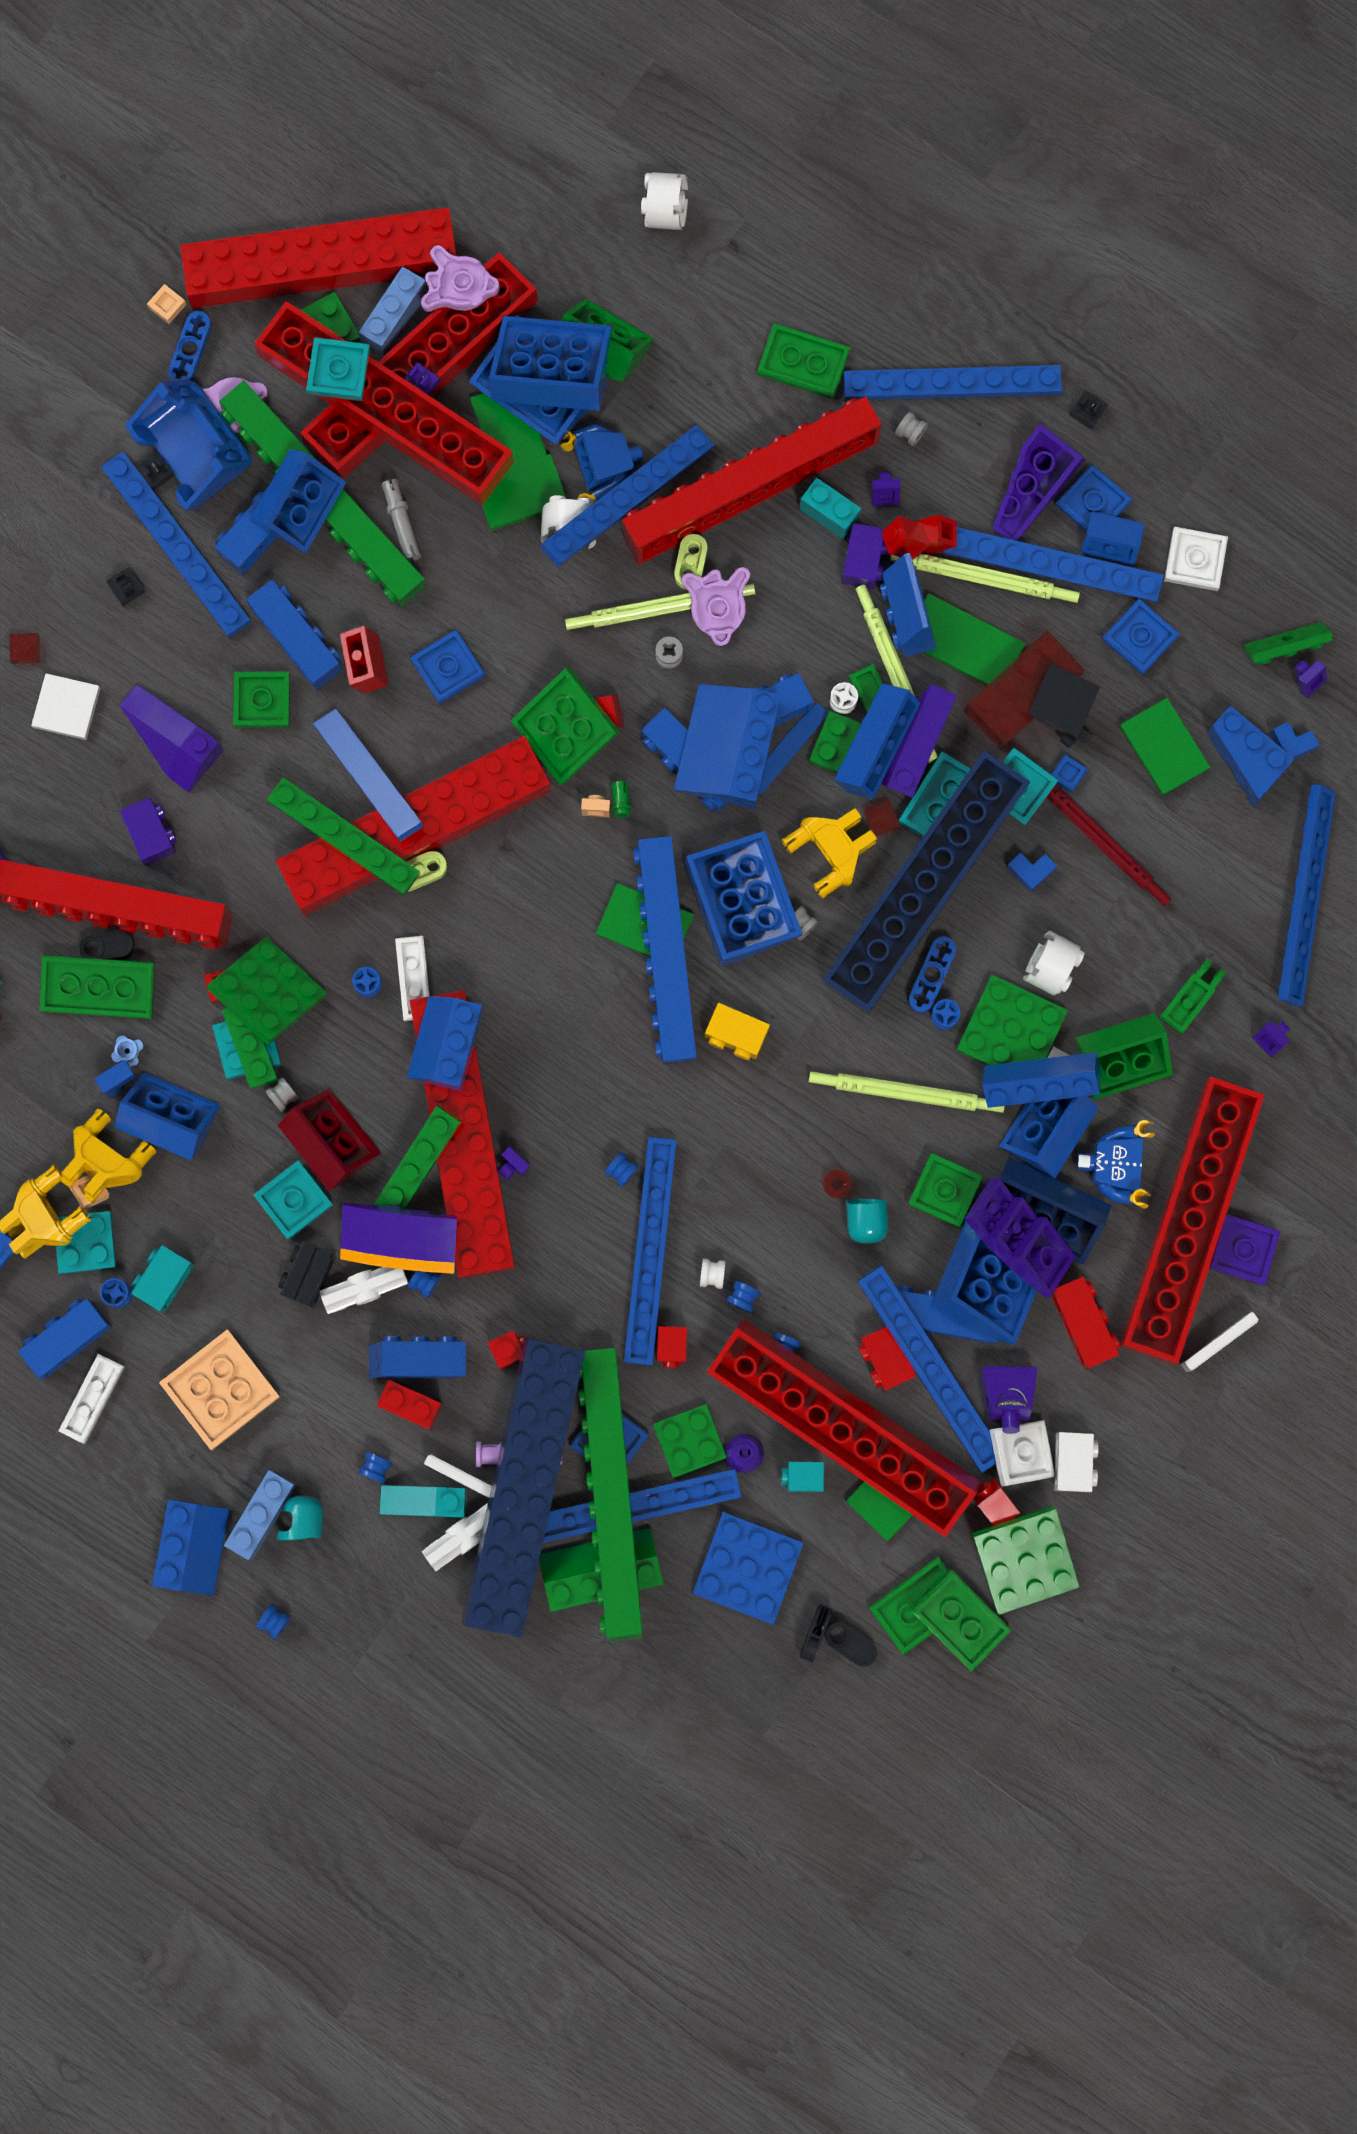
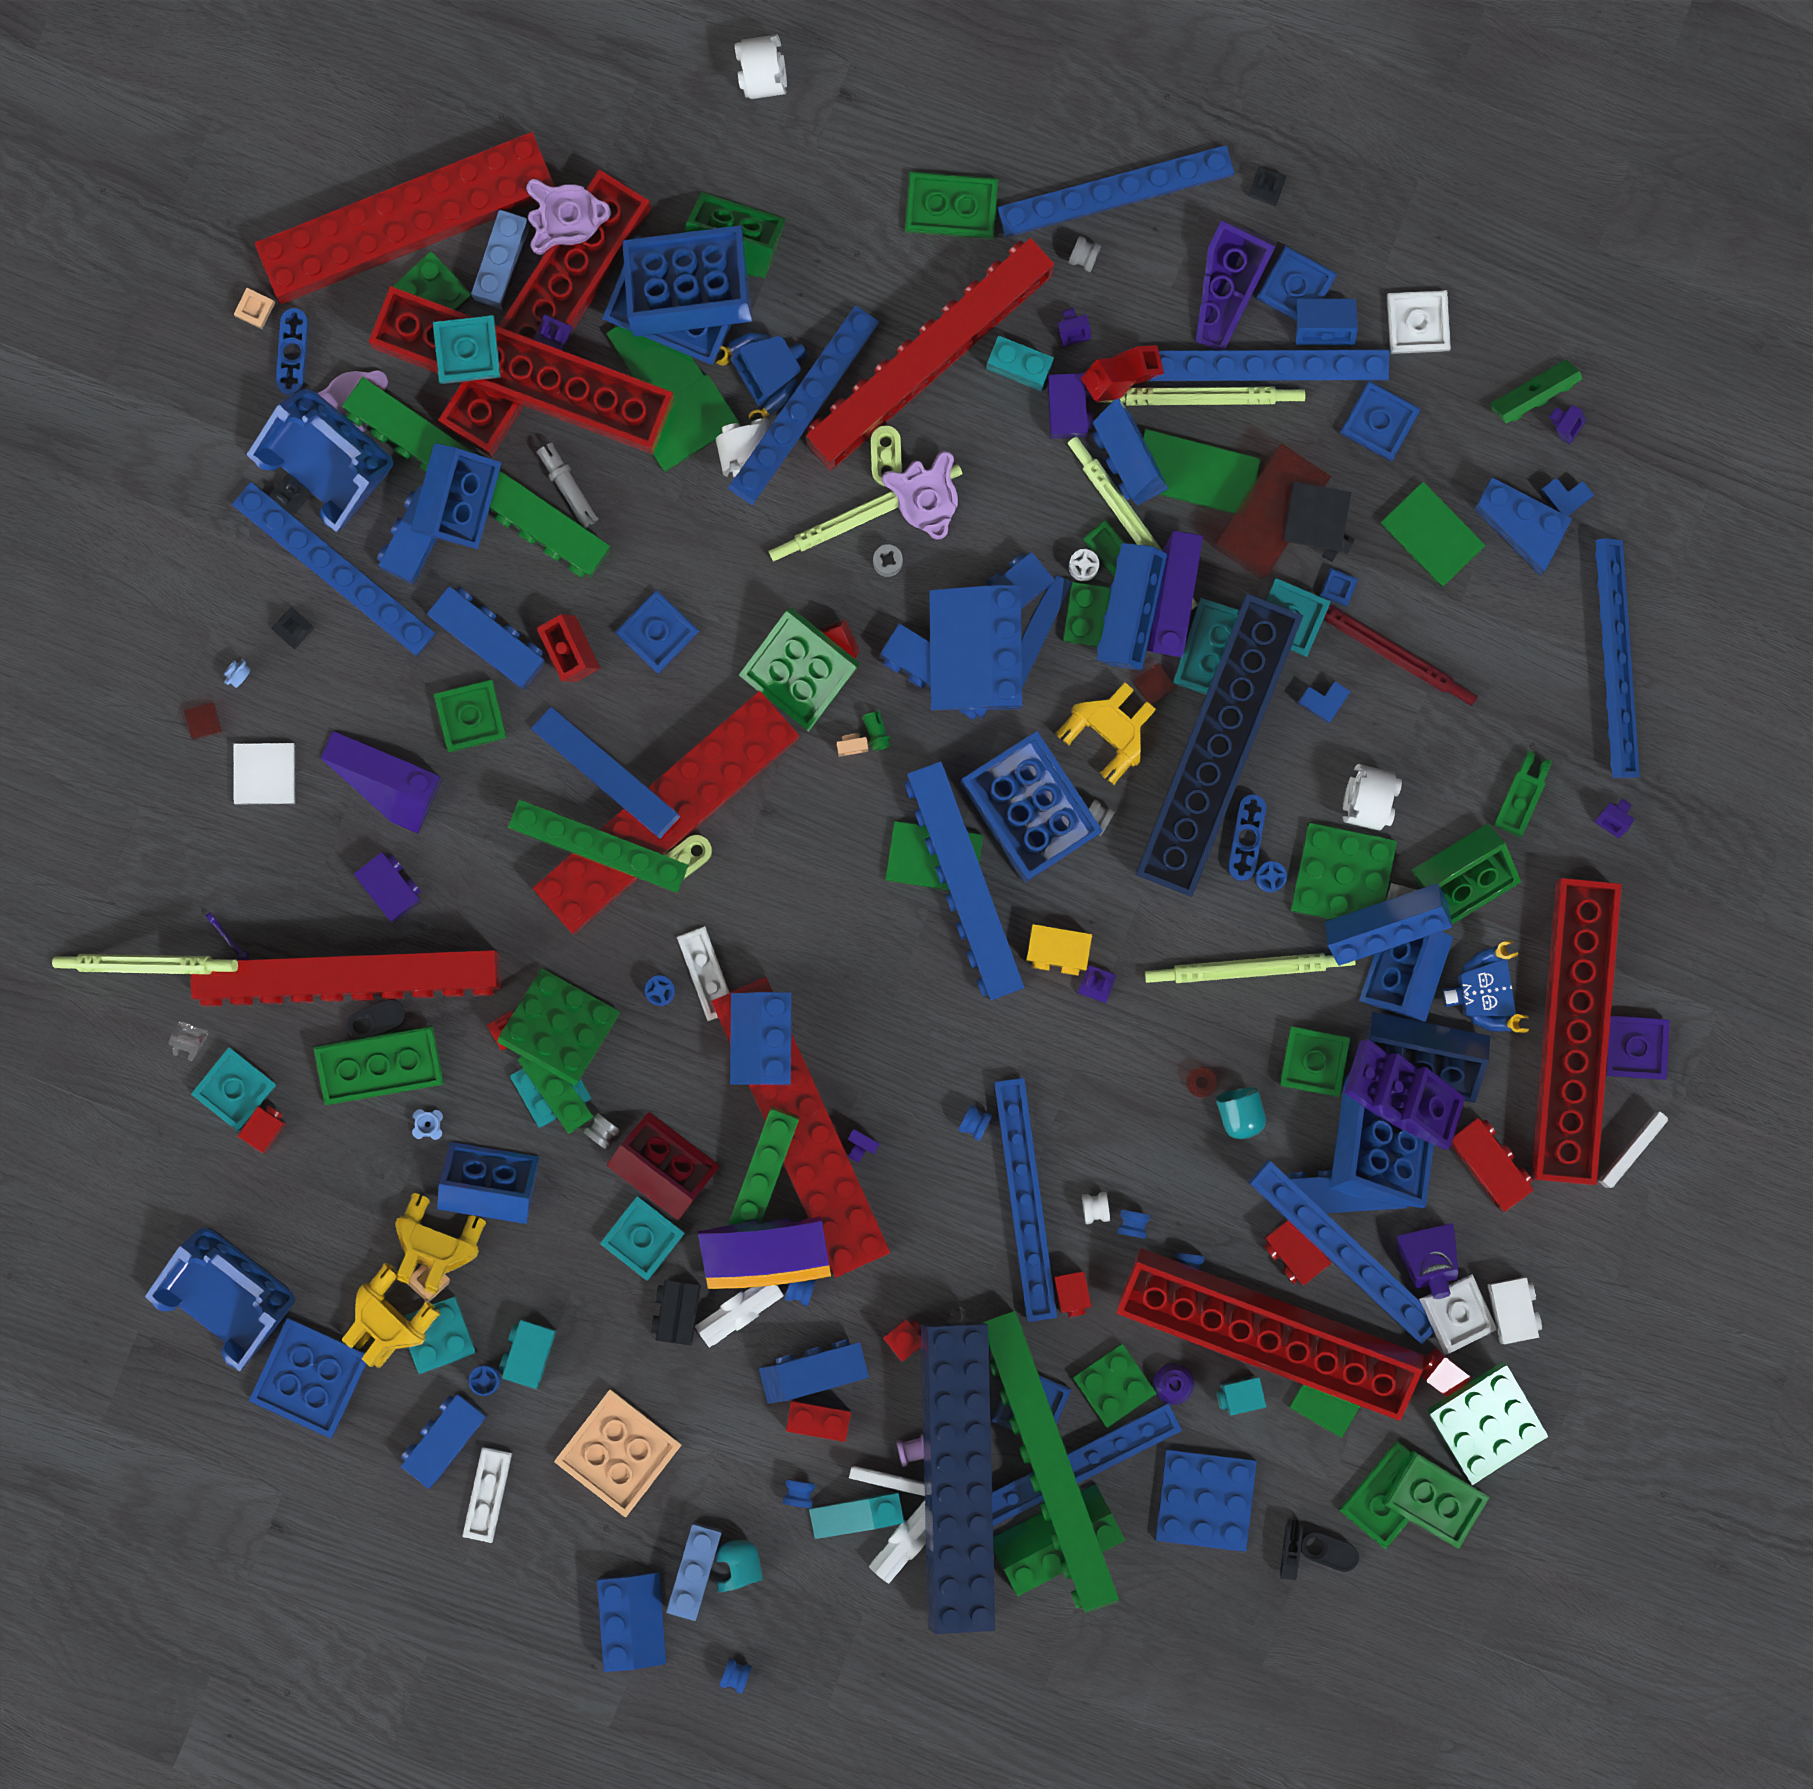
camera: 20 degrees left, 5 degrees up
(65, 612) = (236, 673): none -> light blue plate
(112, 1080) = (425, 1157): blue piece -> none
(763, 1072) = (1096, 984): none -> dark purple tile

